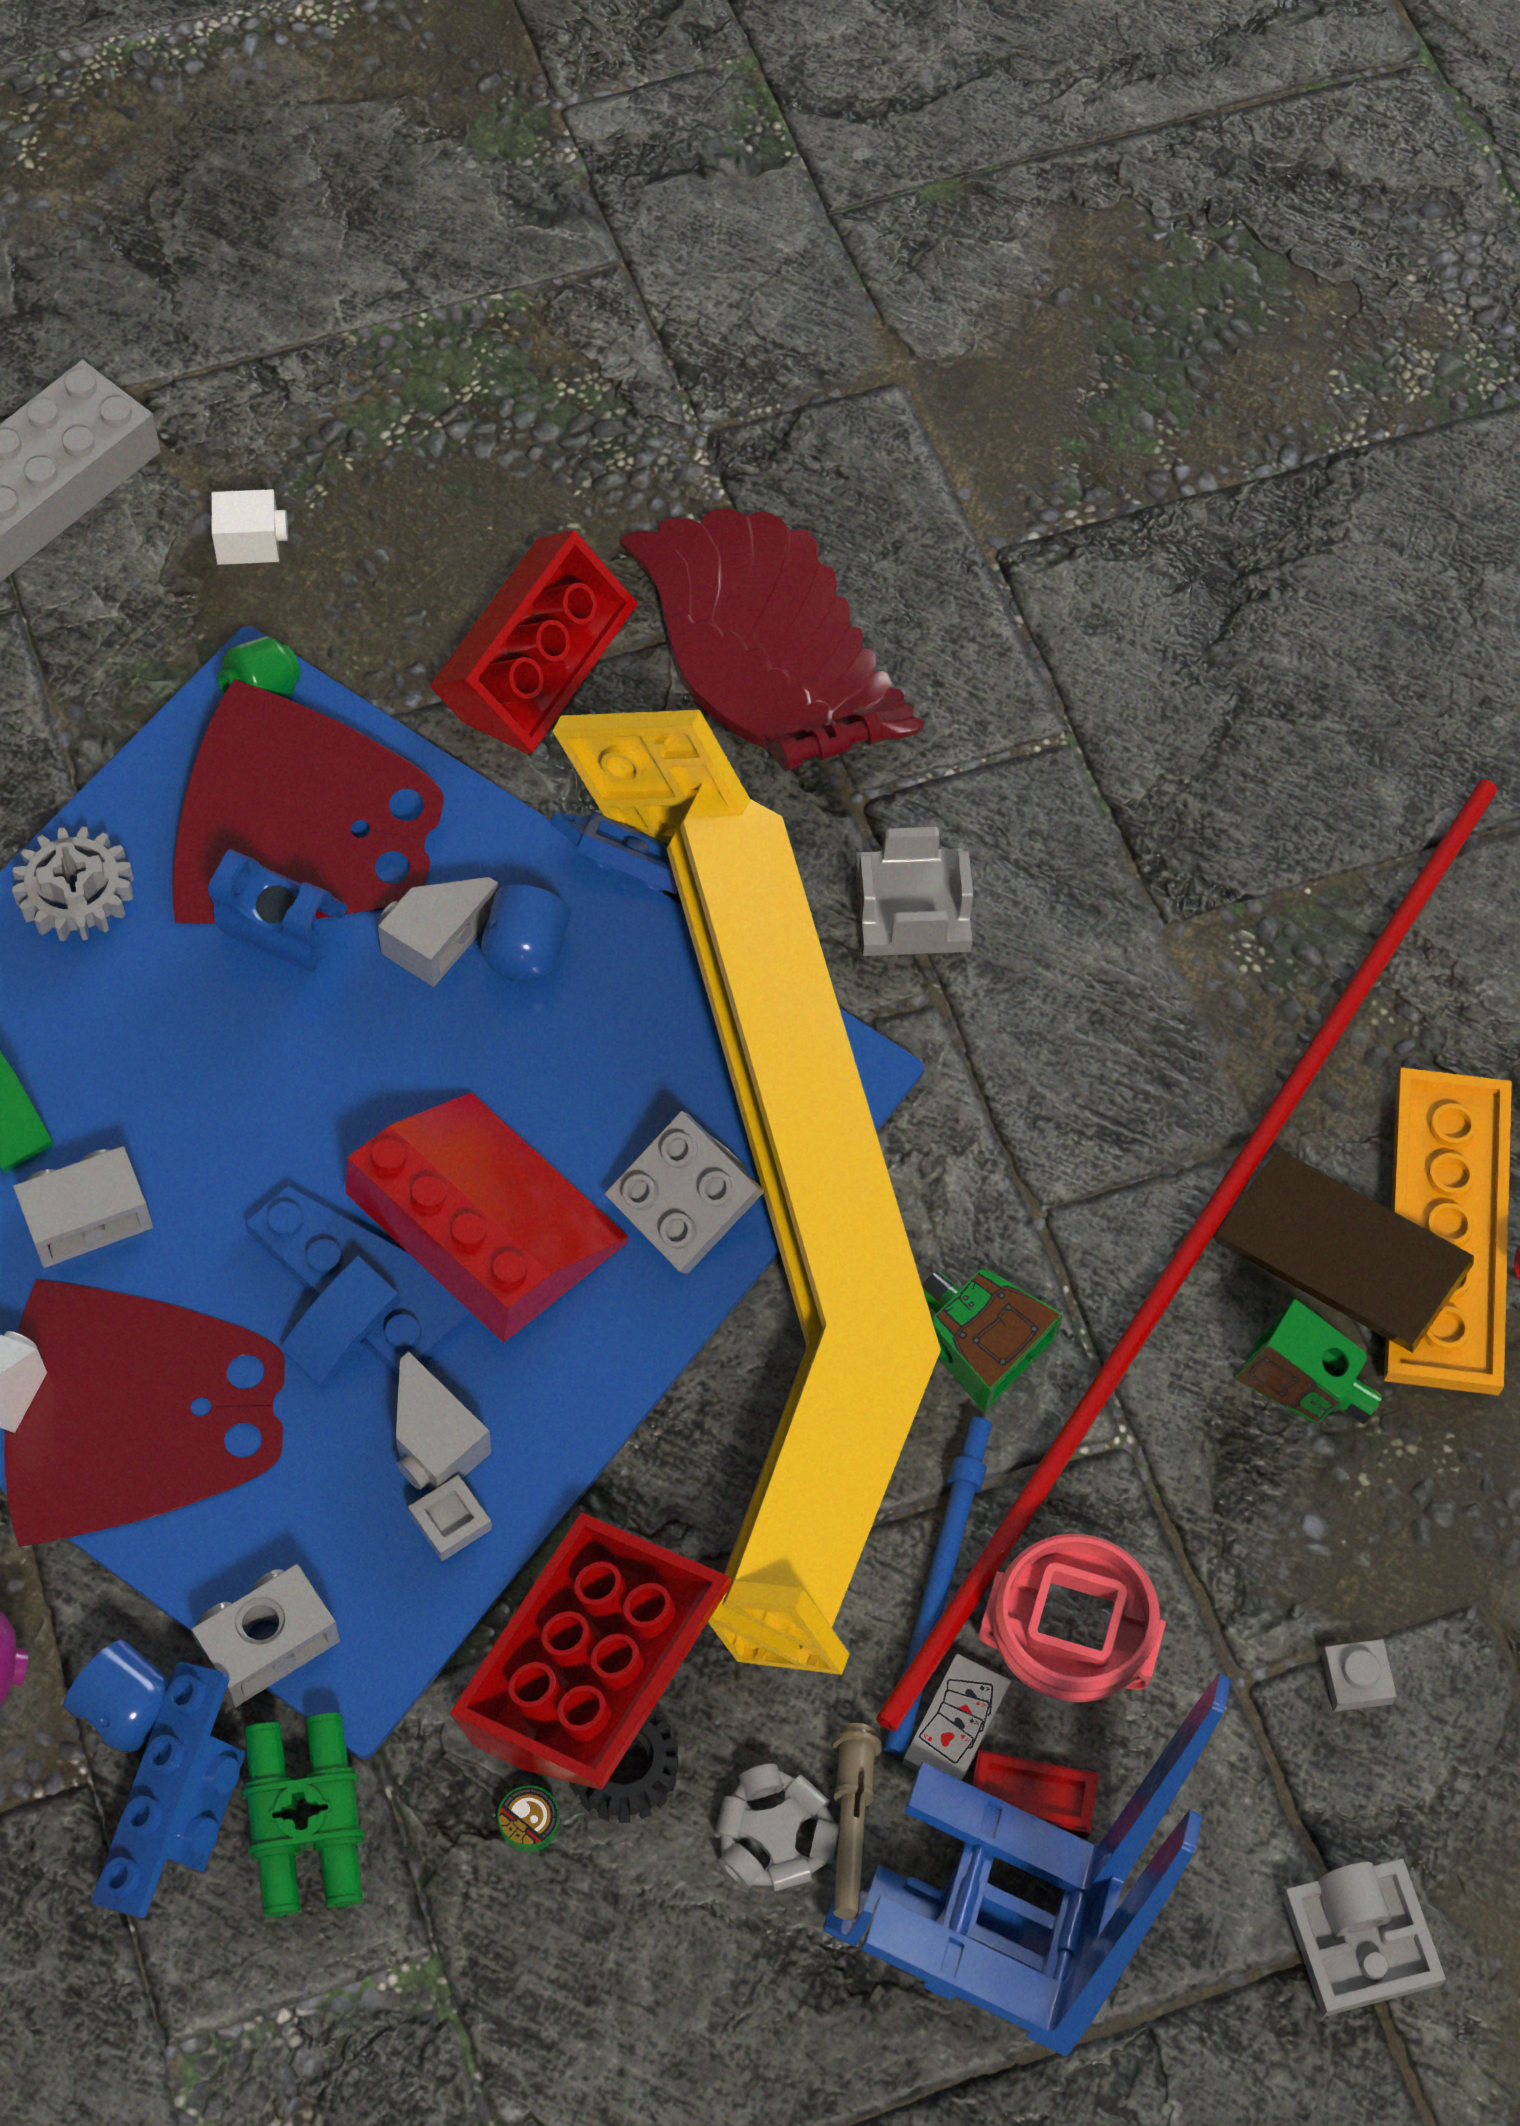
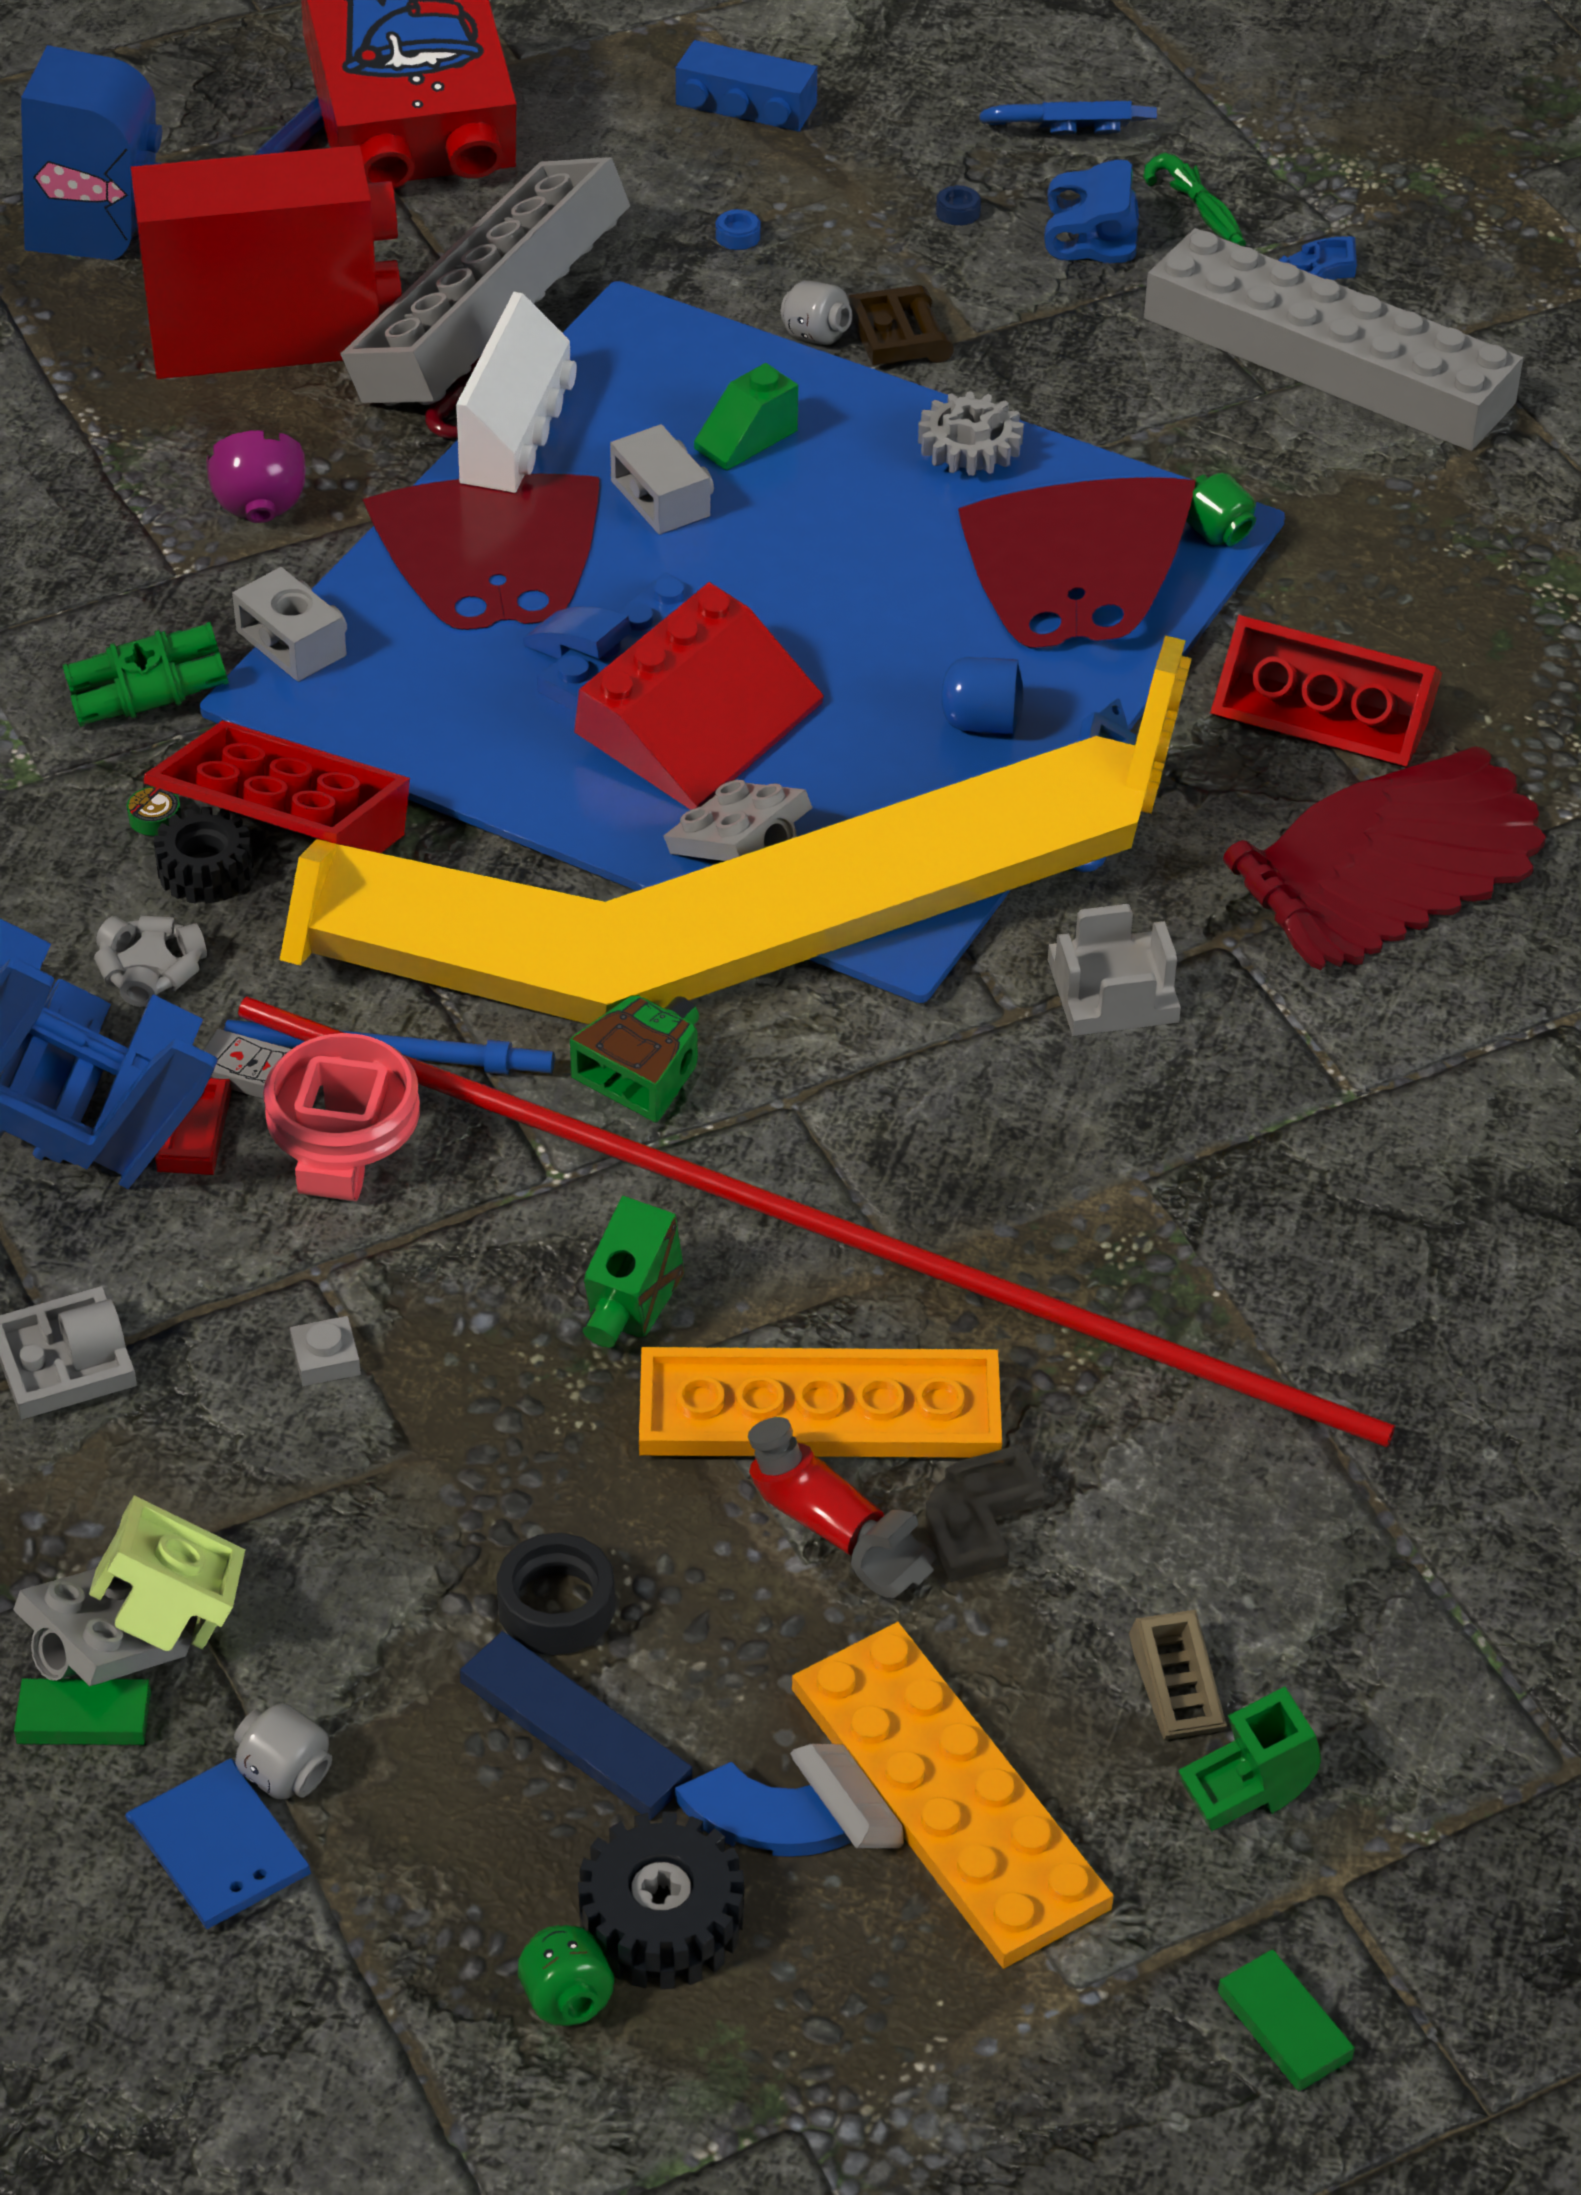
camera: 85 degrees right, 15 degrees down
(119, 1696) = (233, 558): blue helmet -> none
(175, 1795) = (147, 600): blue bracket -> none
(247, 526) = (1392, 496): white brick -> none
(270, 909) = (974, 533): blue piece -> none
(434, 1429) = (486, 695): light grey slope -> none
(435, 925) = (978, 631): light grey slope -> none
(450, 1517) = (406, 718): light grey plate -> none
(854, 1791) = (185, 992): dark tan pin -> none
(1345, 1250) = (771, 1308): dark brown tile -> none

